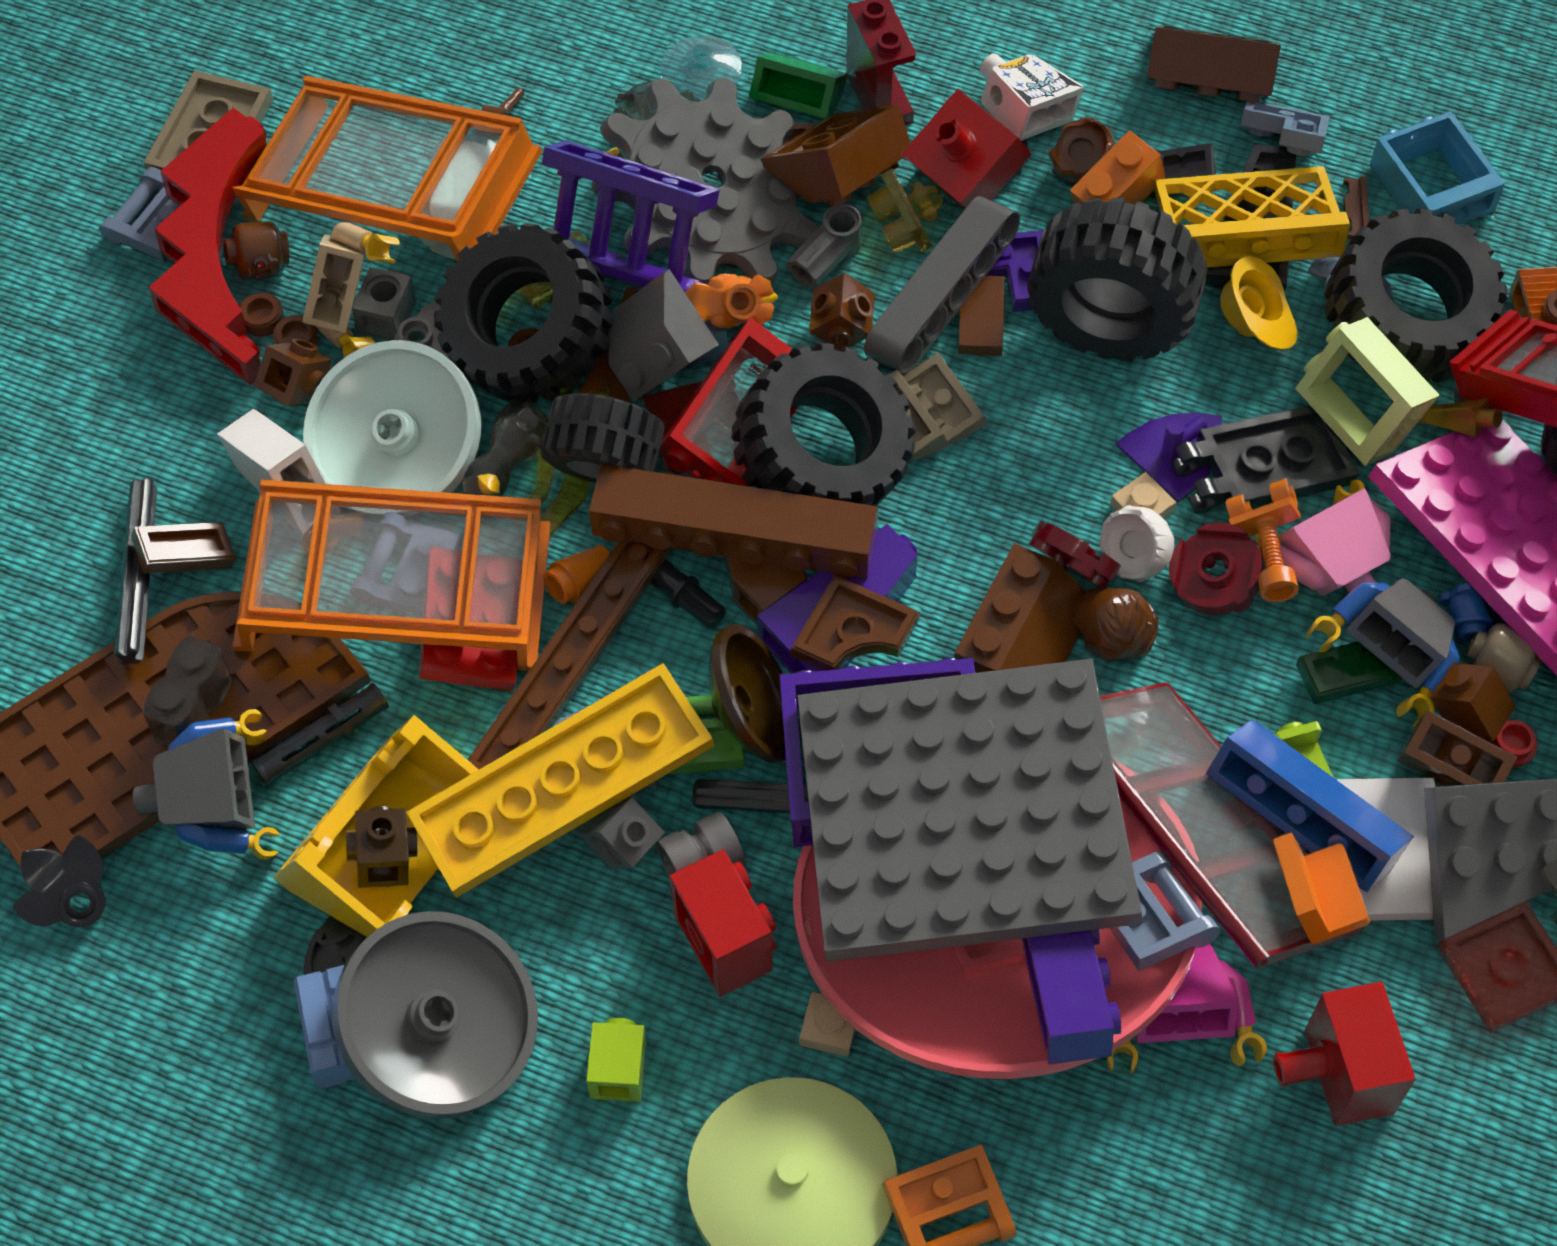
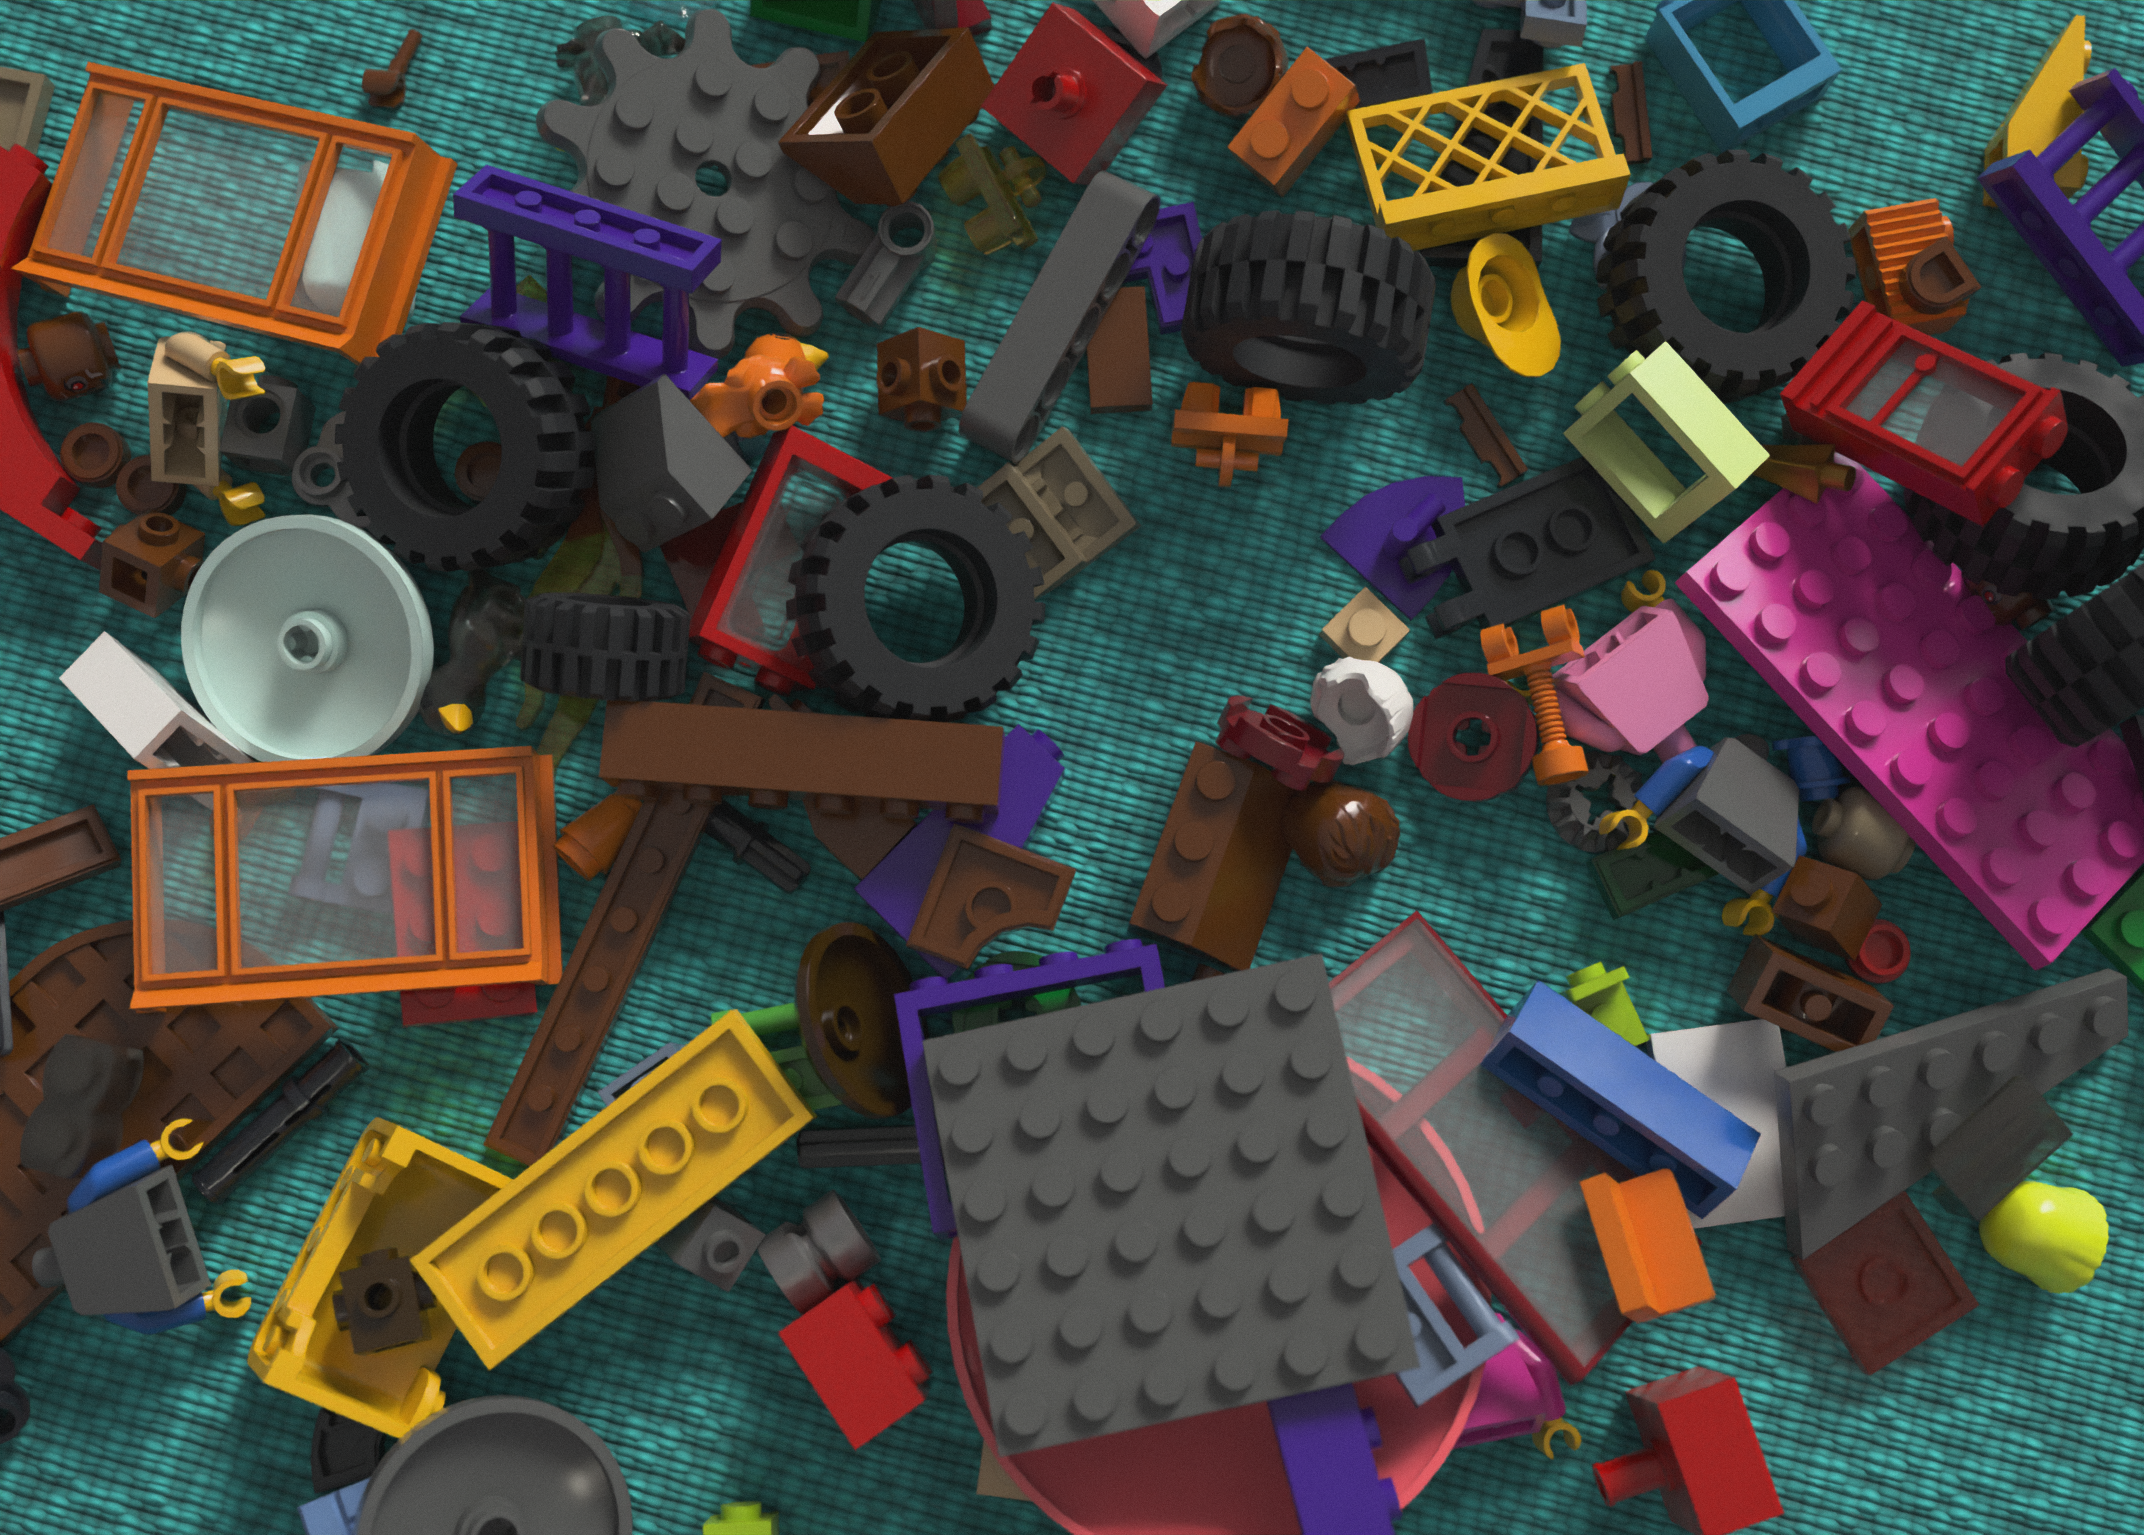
camera: 10 degrees left, 20 degrees up
(1056, 368) = (1229, 439): none -> orange hips
(1239, 389) = (1486, 435): none -> reddish brown piece
(1286, 623) = (1570, 810): none -> dark grey gear

